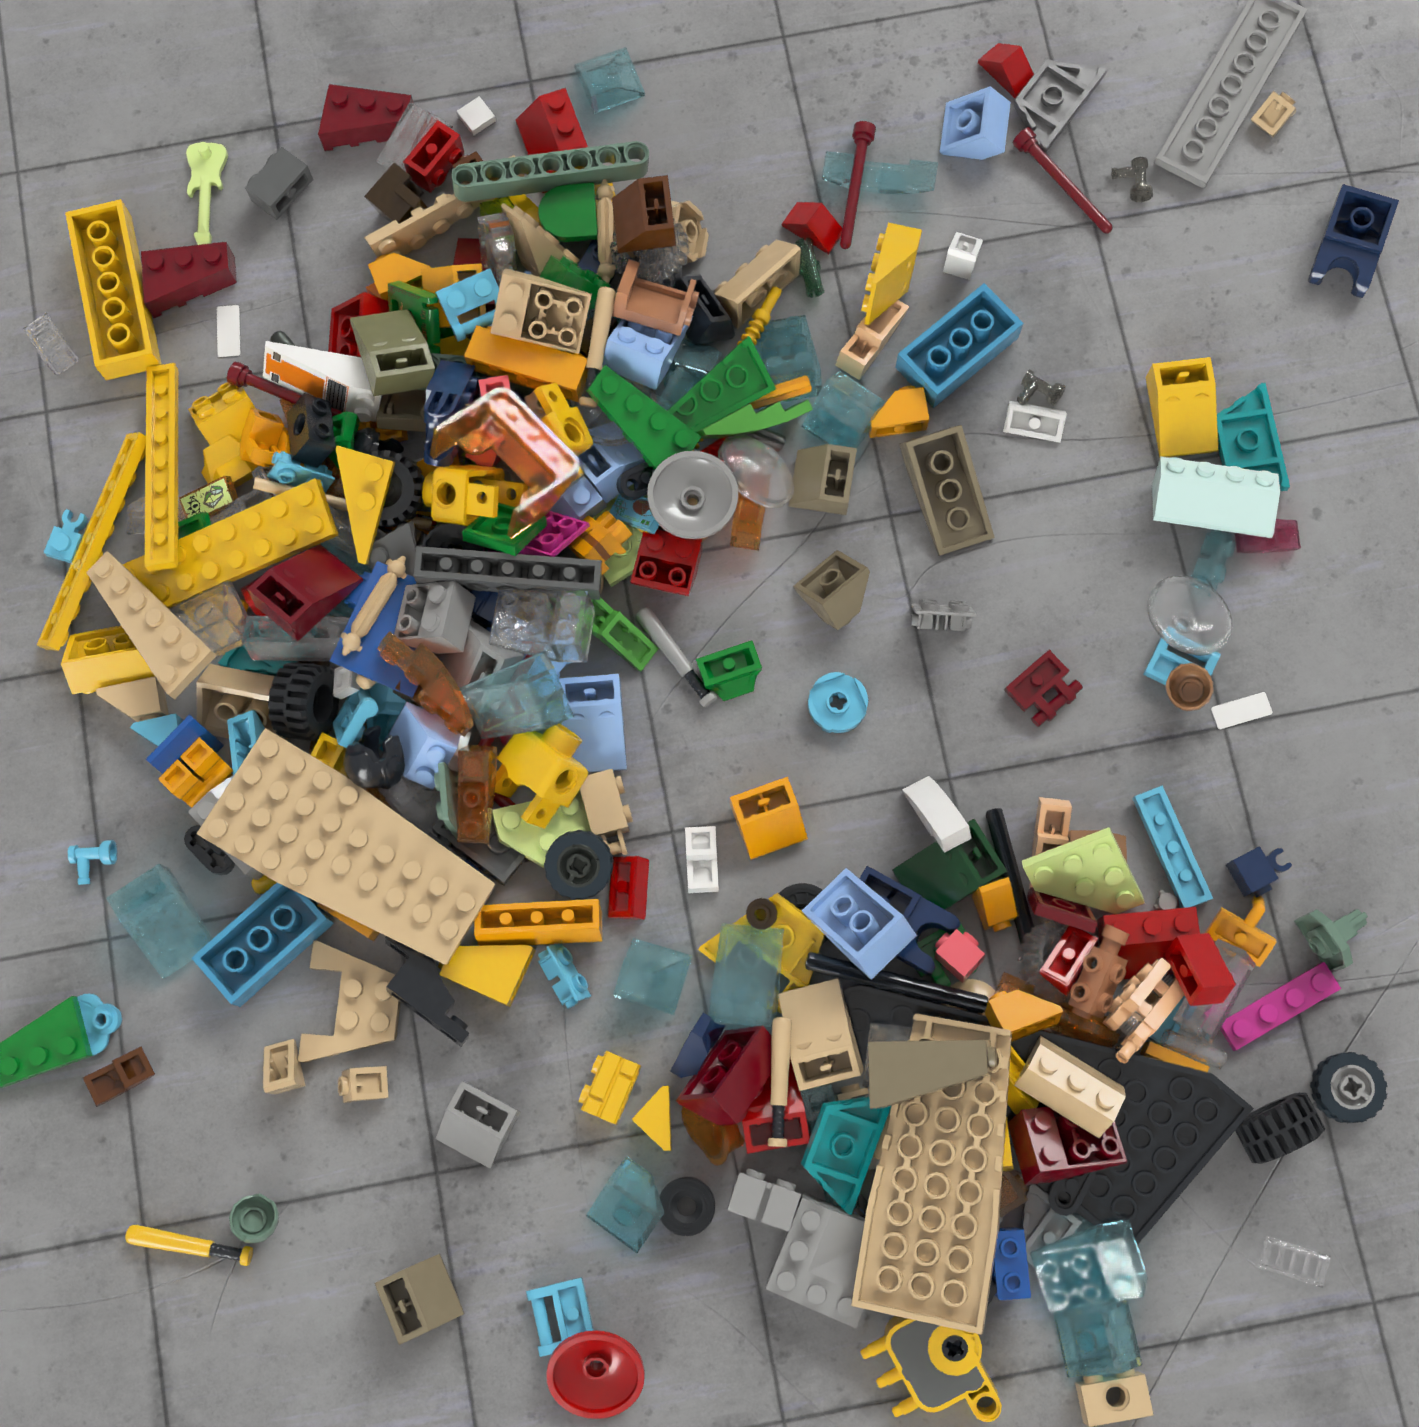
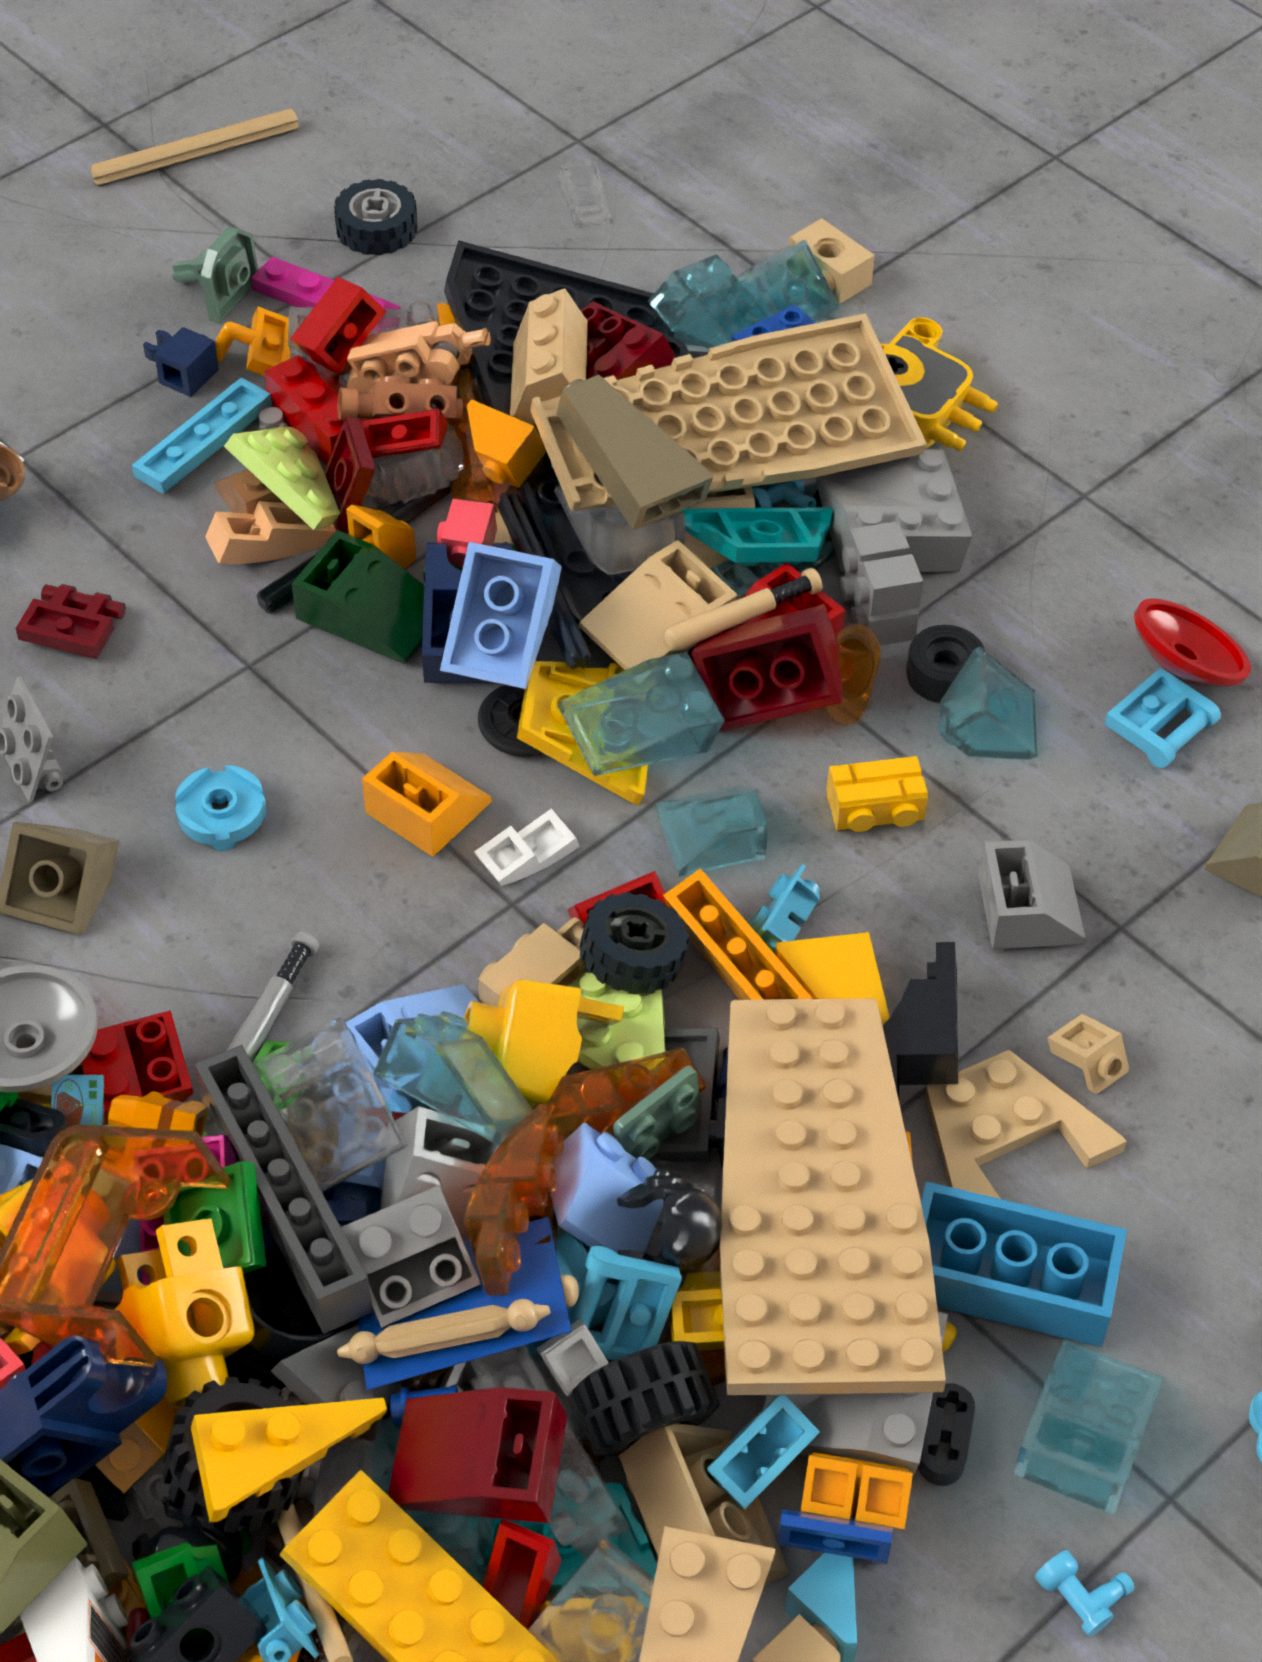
camera: 125 degrees left, 25 degrees down
(281, 1068) = (1152, 1147): tan slope -> none
(655, 1118) = (869, 733): yellow slope -> none
(697, 1046) = (767, 722): dark blue slope -> none
(731, 670) = (242, 937): green slope -> none
(770, 909) = (556, 726): dark brown plate -> none
(938, 813) = (305, 628): white slope -> none
(1280, 1128) = (460, 212): black tyre -> none

